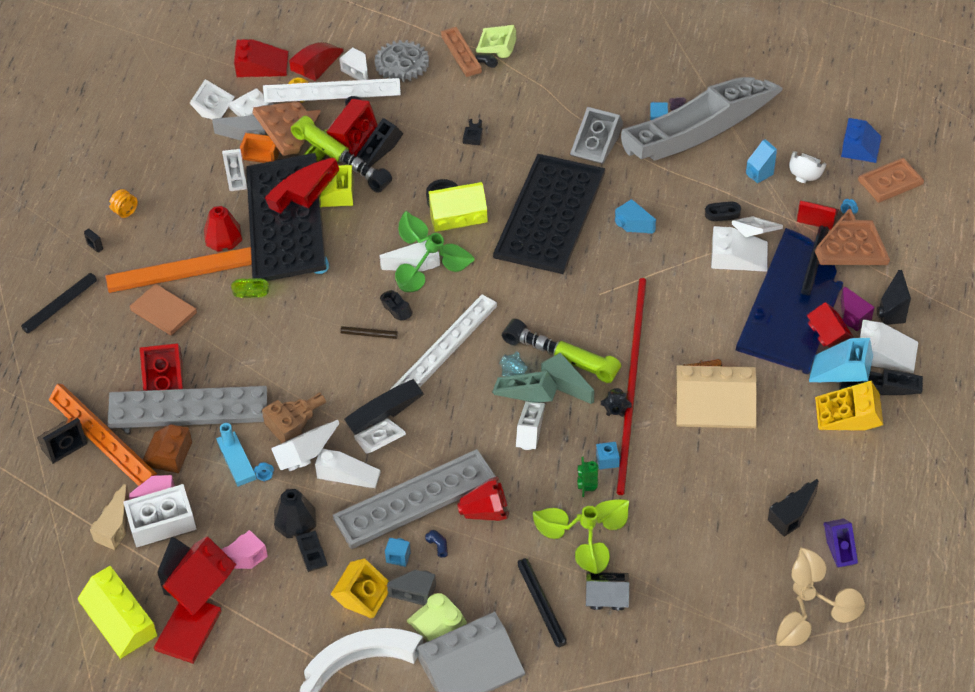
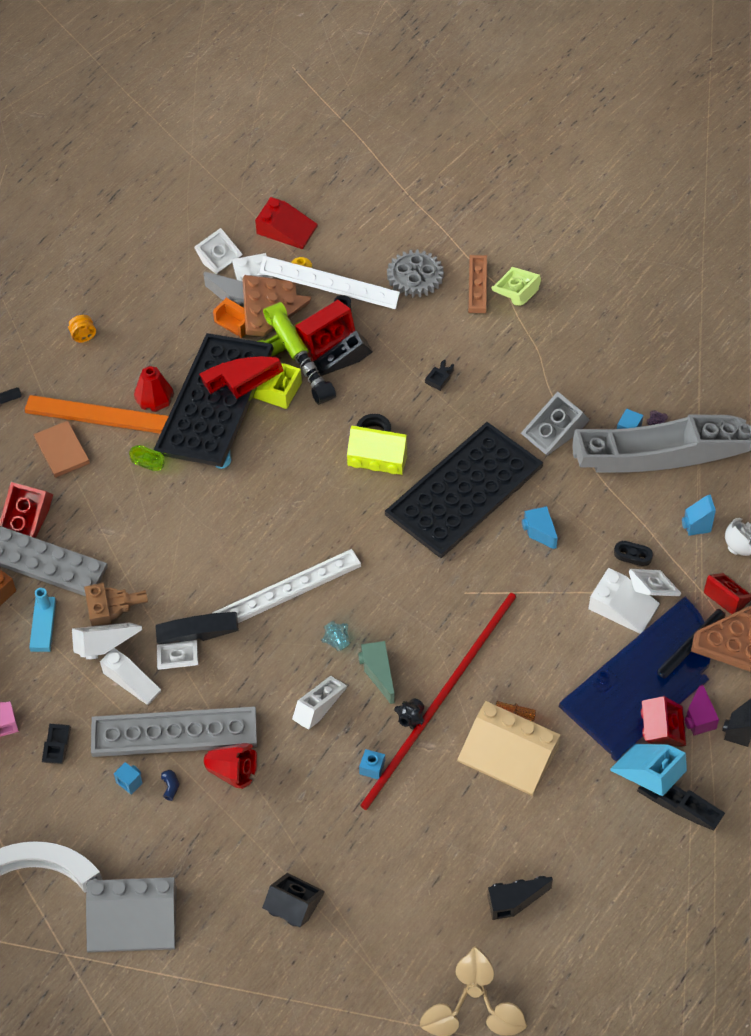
camera: 25 degrees right, 5 degrees up
(93, 240) = (37, 356): black tile -> none
(235, 169) = (193, 331): white slope -> none
(264, 471) = (58, 647): dark azure plate -> none
(294, 514) = (59, 702): black cone -> none
(314, 59) = (333, 242): red slope -> none
(354, 64) = (369, 261): white slope -> none
(361, 588) = (77, 800): yellow slope -> none
(369, 332) = (229, 546): dark brown bar -> none
(396, 305) = (266, 528): black piece -> none
(409, 255) = (311, 486): white slope -> none
(412, 230) = (321, 458): bright green plant -> none
(413, 587) = (123, 819): dark grey slope -> none
(437, 617) = (126, 859): yellowish green slope -> none
(488, 59) = (499, 301): black arm -> none
(527, 387) = (337, 662): sand green slope -> none
(542, 603) = (228, 885): black axle -> none
(587, 476) = (336, 779): green hinge -> none
(591, 557) = (298, 860): lime plant -> none
(603, 368) = (421, 673): piece -> none
(841, 542) = (540, 951): dark purple slope -> none
(850, 408) = (633, 816): yellow slope -> none
(890, 347) = (711, 767): white slope -> none

